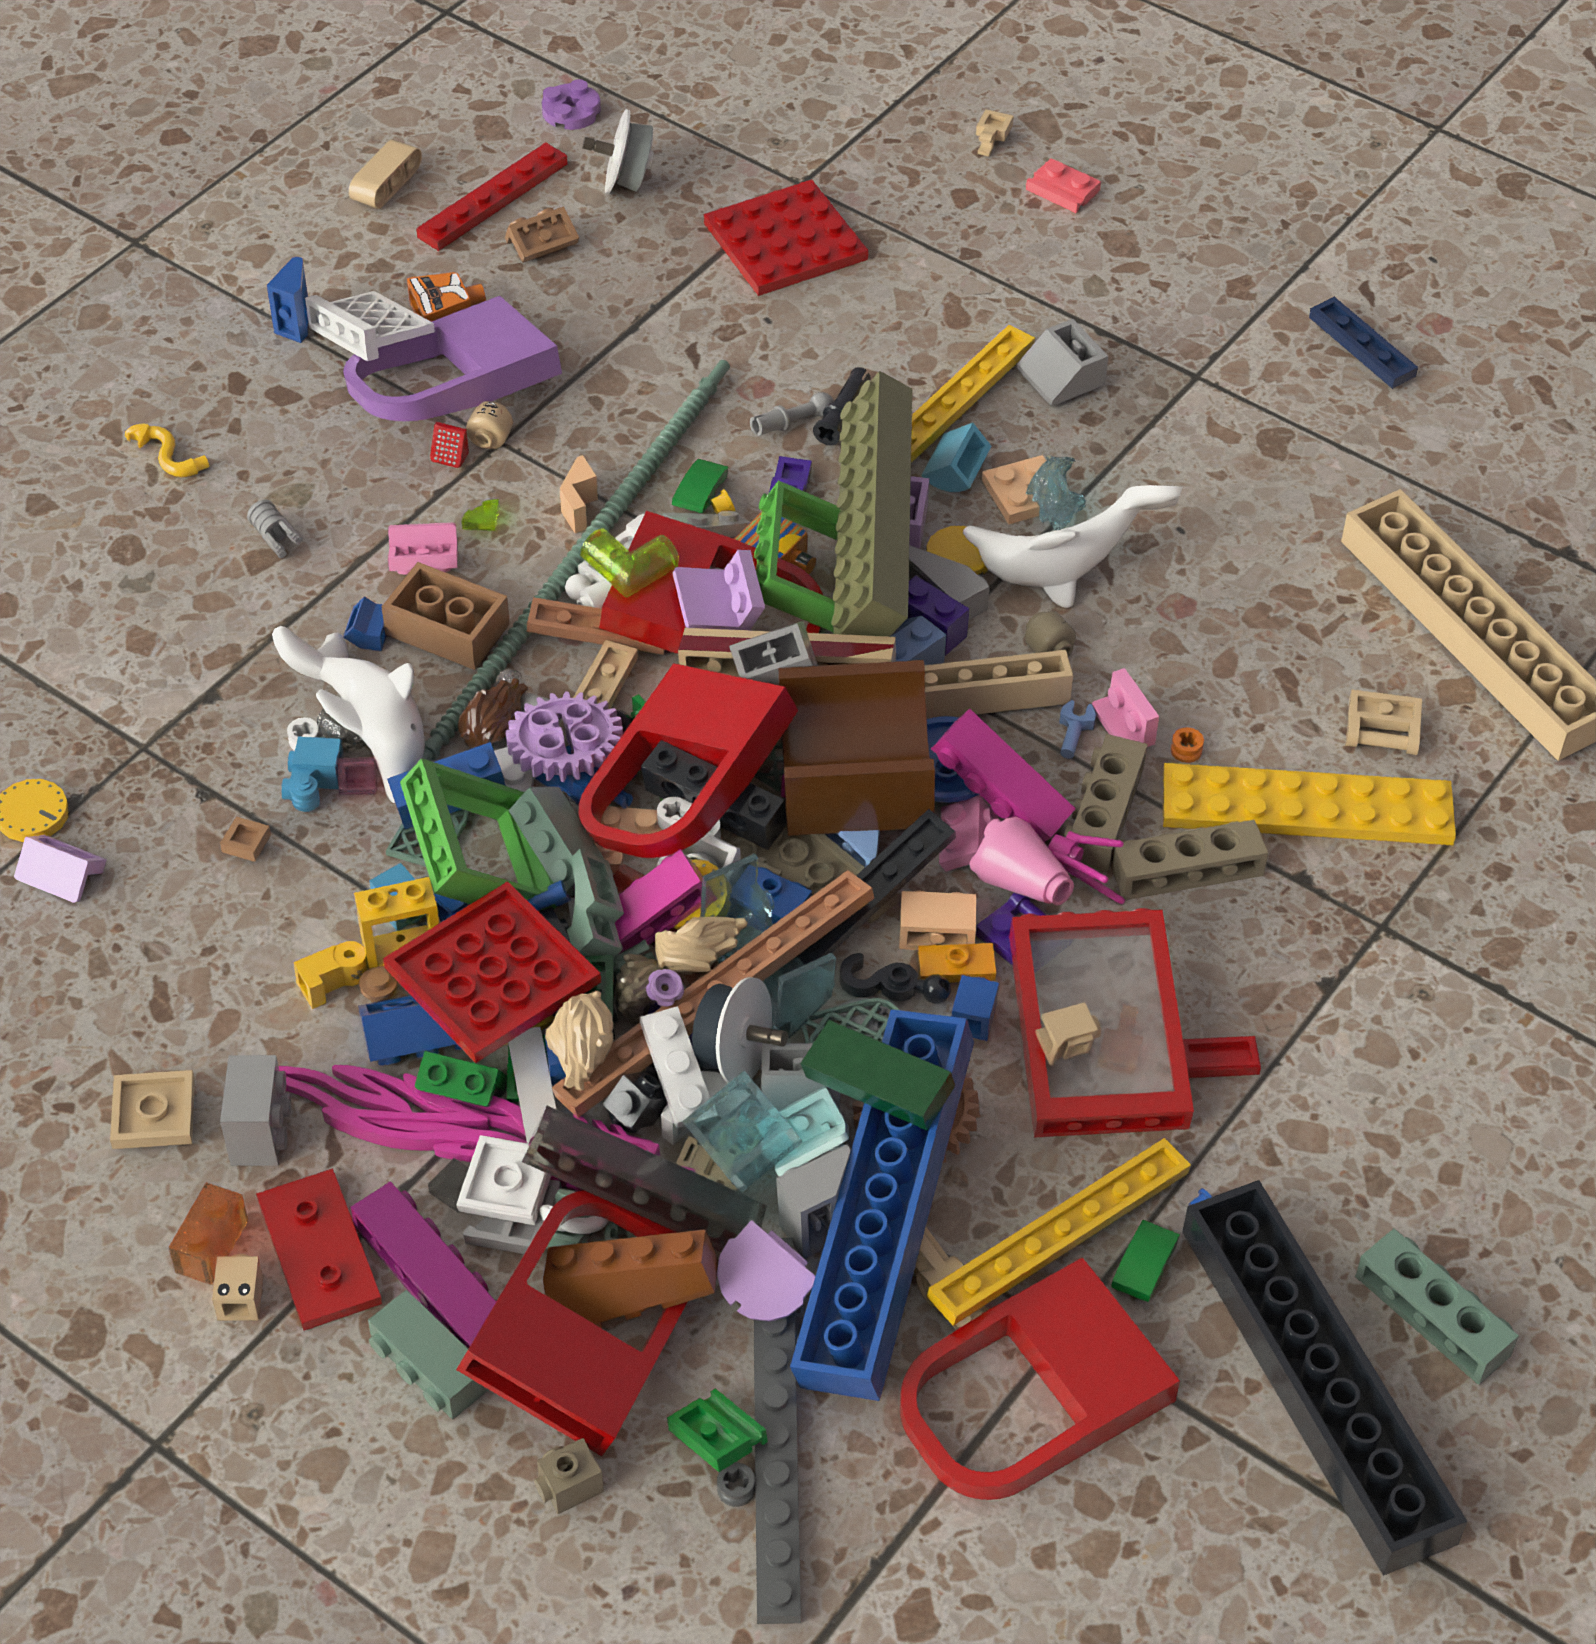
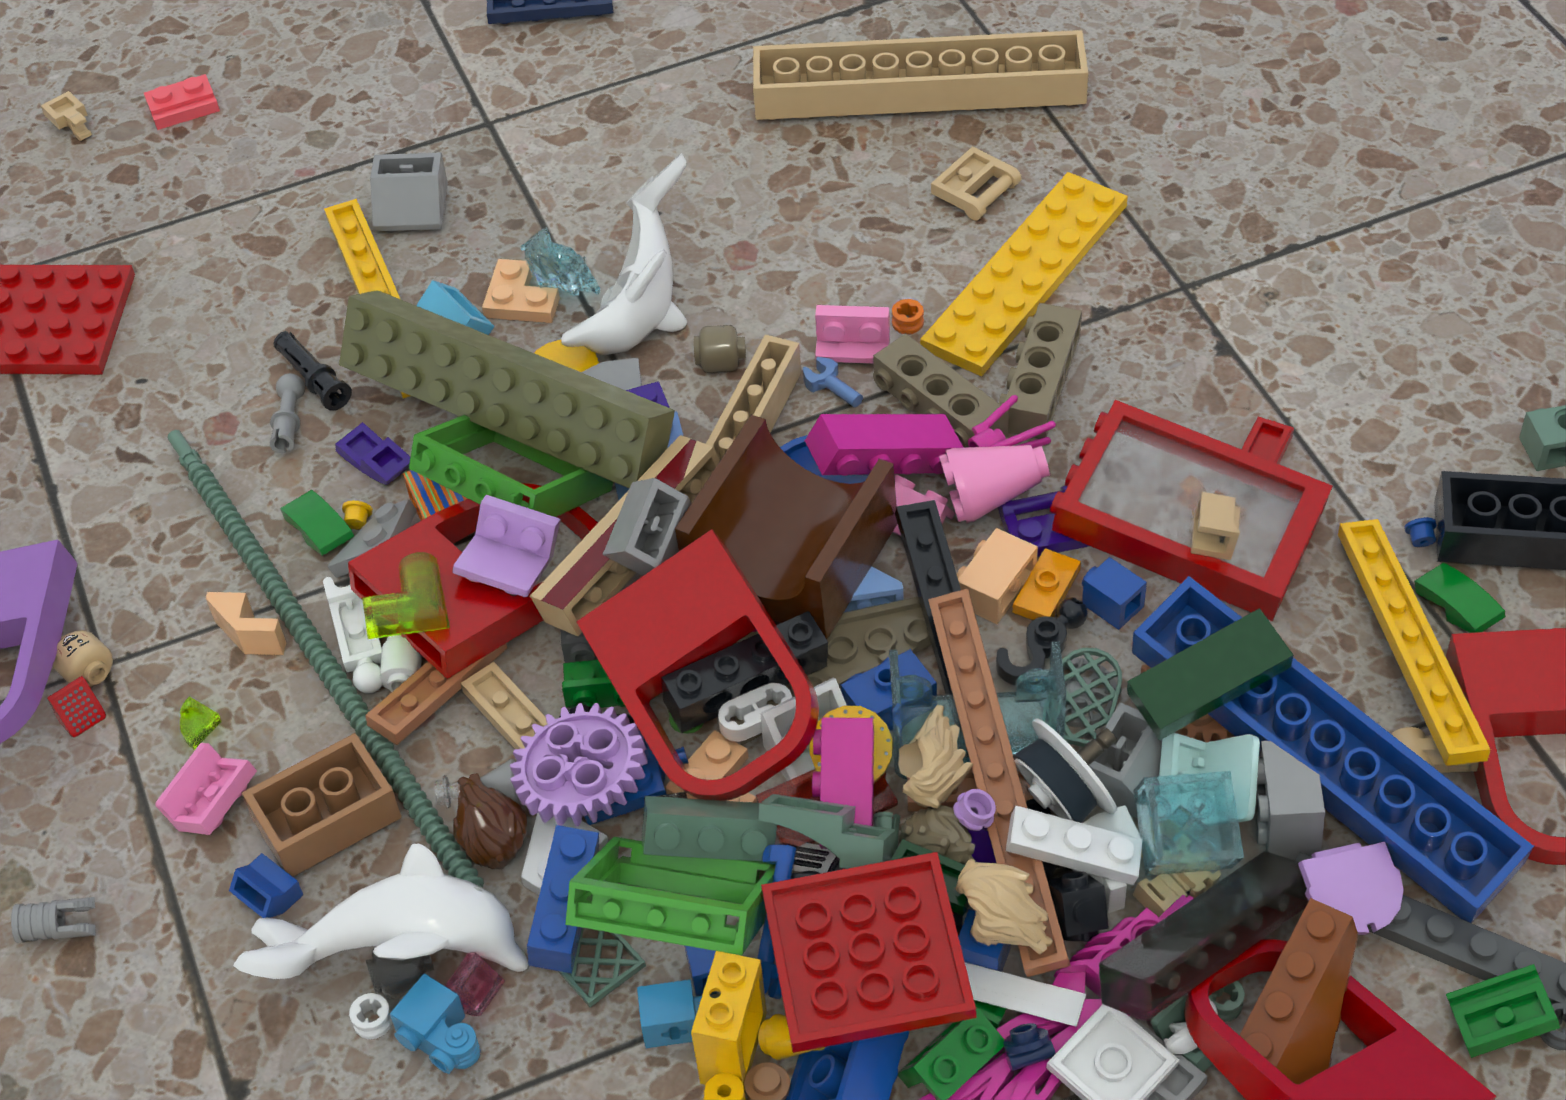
camera: 55 degrees left, 0 degrees up
(489, 1118) = (1027, 1046): none -> dark blue plate

